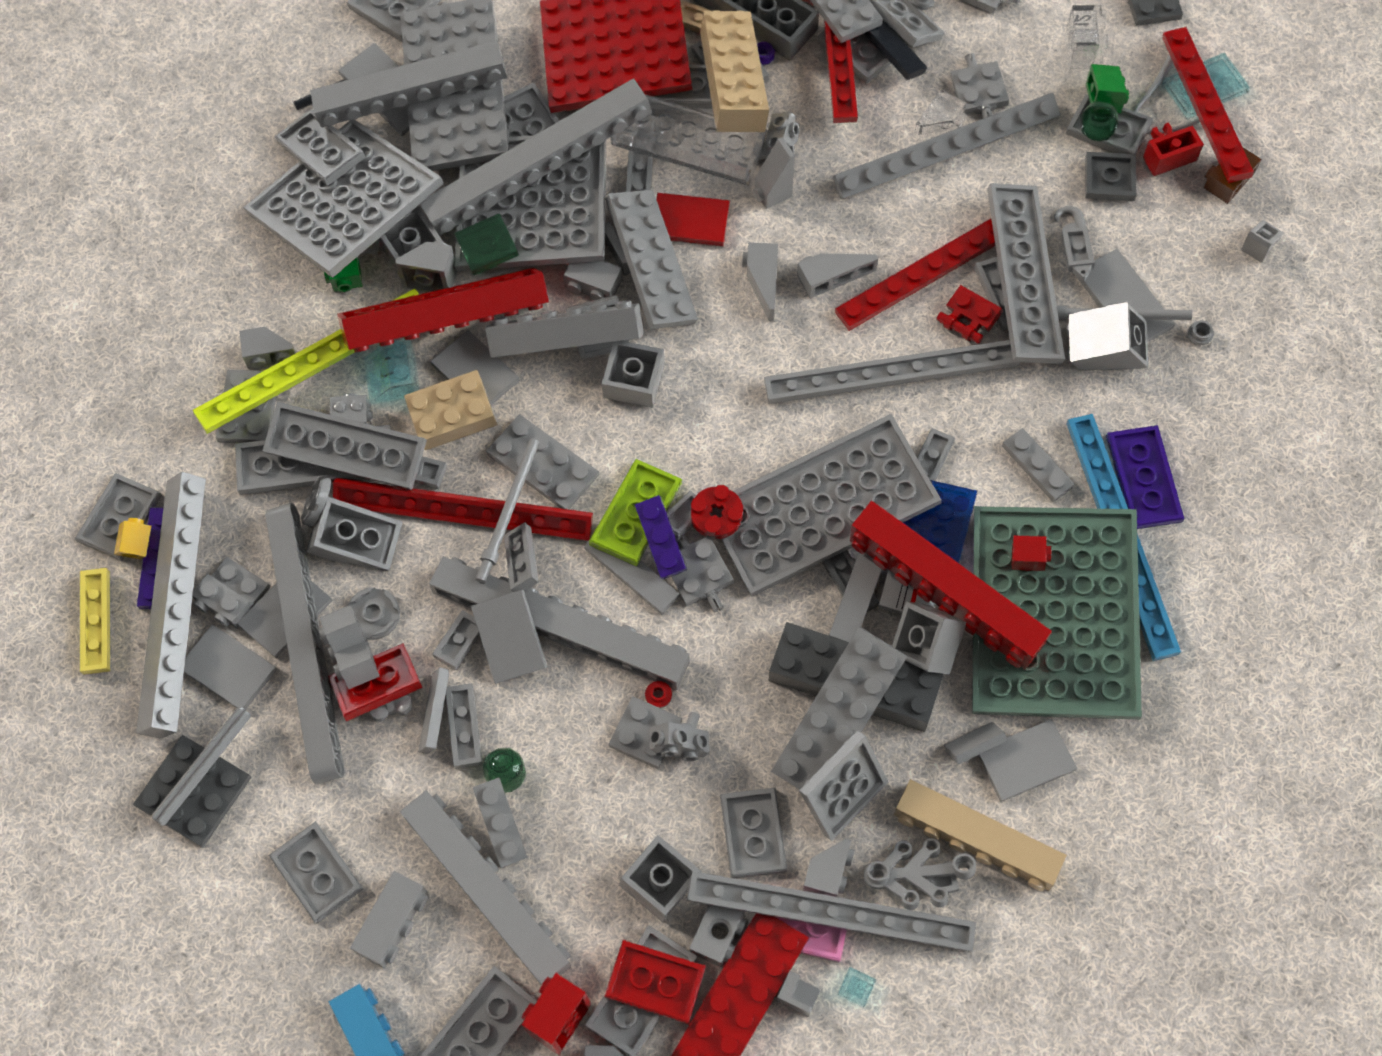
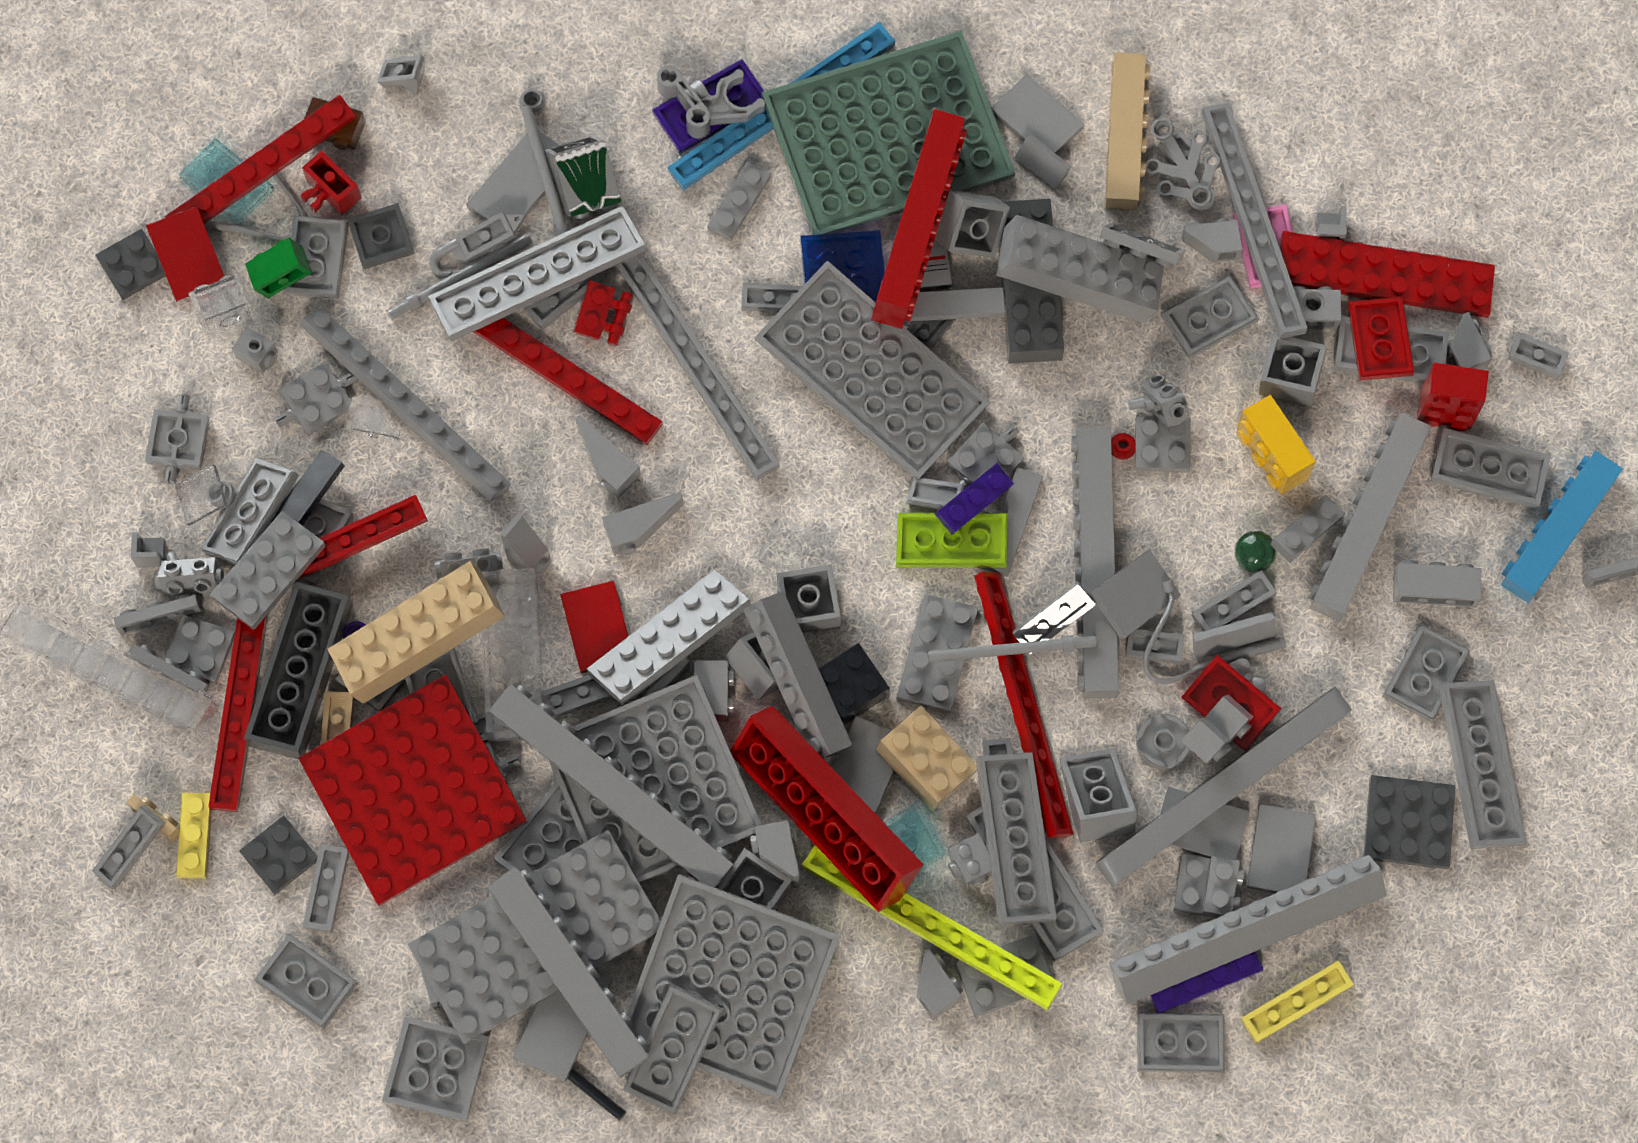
camera: 115 degrees left, 5 degrees up
(132, 539) = (1203, 1003): yellow brick -> none
(201, 766) = (1388, 815): light grey axle -> none
(204, 877) = (1482, 764): none -> light grey plate
(316, 501) = (1083, 840): light grey tile -> none
(415, 720) = (1243, 653): none -> light grey piece
(486, 244) = (728, 802): clear green tile -> none
(545, 380) = (853, 683): none -> black brick
(589, 823) = (1275, 445): none -> yellow brick
(712, 525) = (926, 474): red plate -> none
(856, 987) = (1300, 184): clear light blue tile -> none
(1030, 553) = (848, 166): red brick -> none
(1038, 53) = (255, 350): none -> light grey brick
(1039, 180) = (414, 301): none -> light grey bar
(1099, 121) = (327, 258): clear green hair -> none
(1141, 459) = (701, 105): none -> light grey piece
(1145, 31) = (185, 252): none -> red tile

